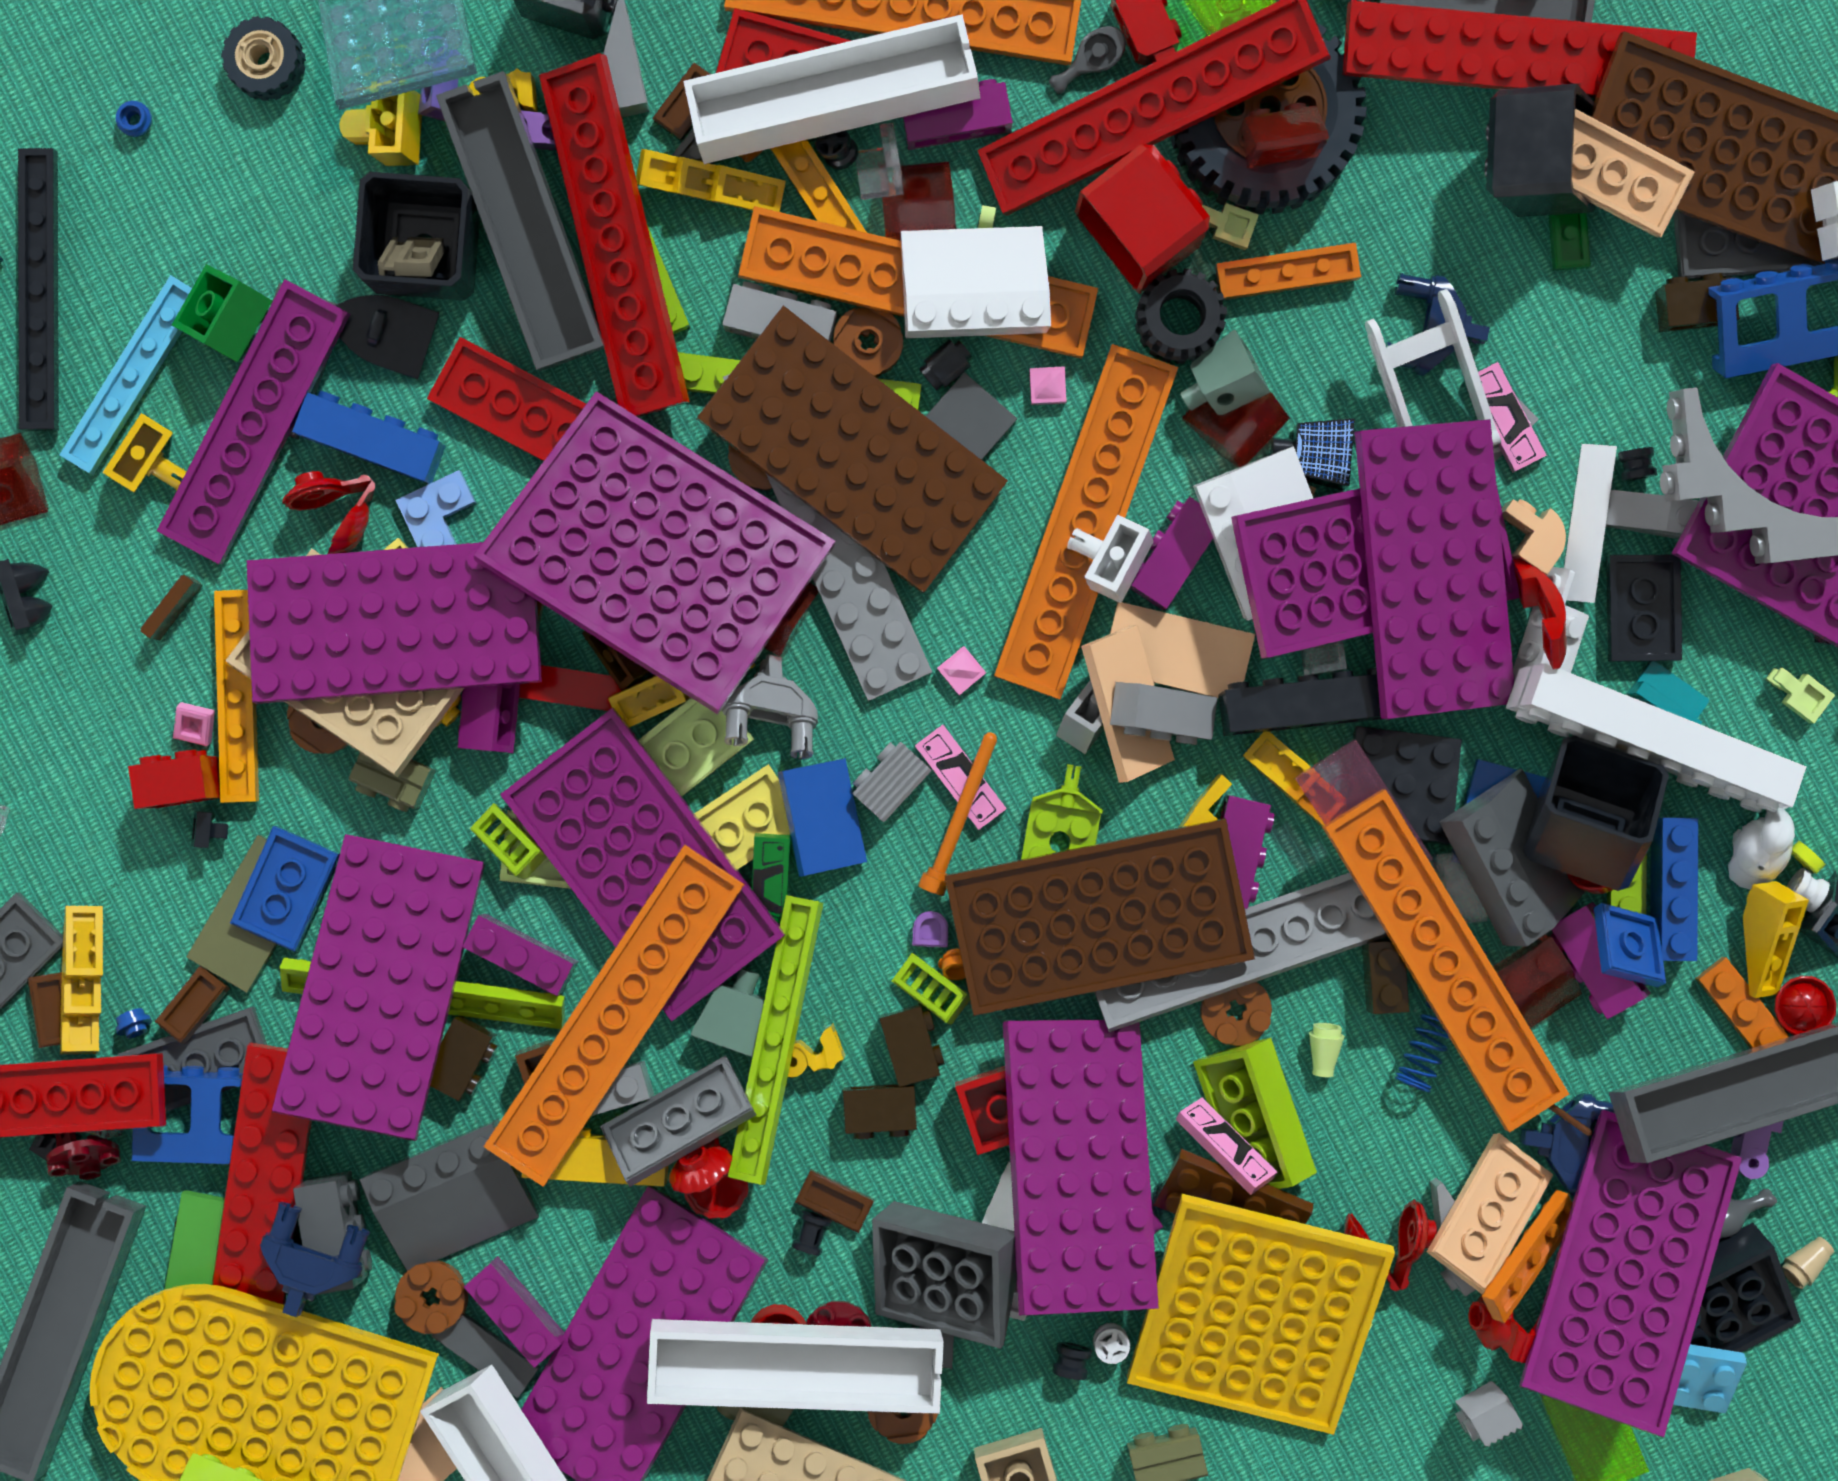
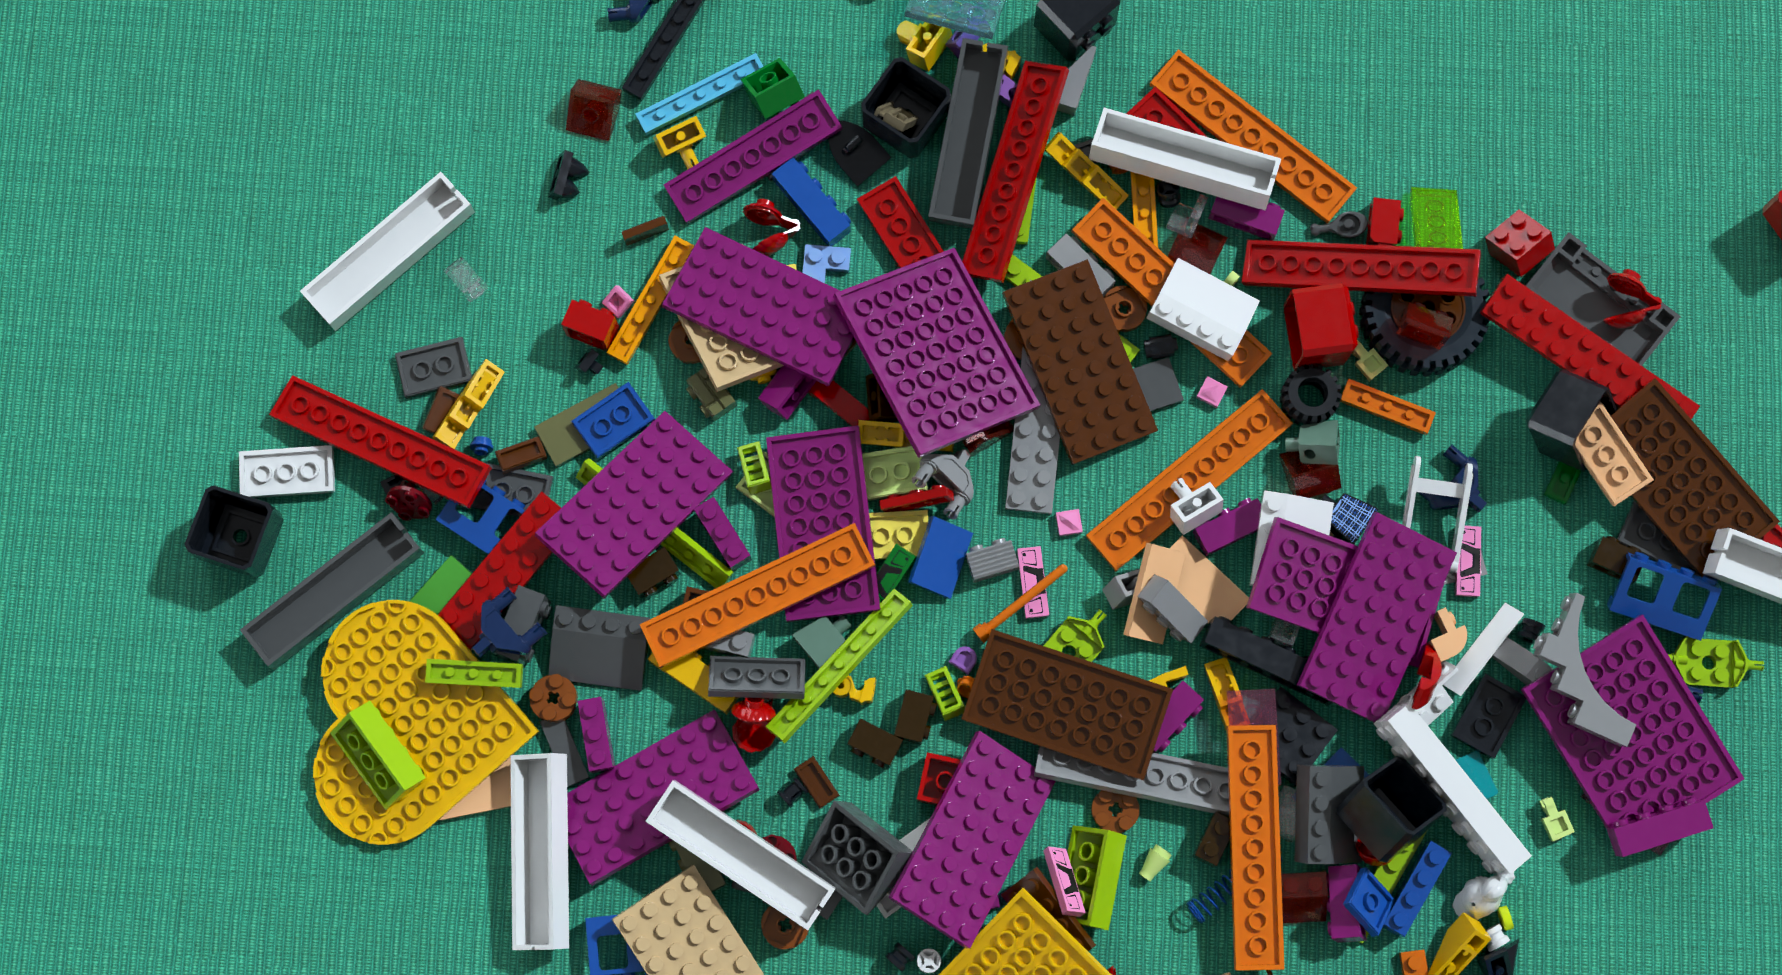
camera: 30 degrees right, 10 degrees down
(306, 1337) = (474, 673): none -> lime plate
(675, 113) = (1088, 124): reddish brown tile -> none
(746, 760) = (917, 499): none -> red plate

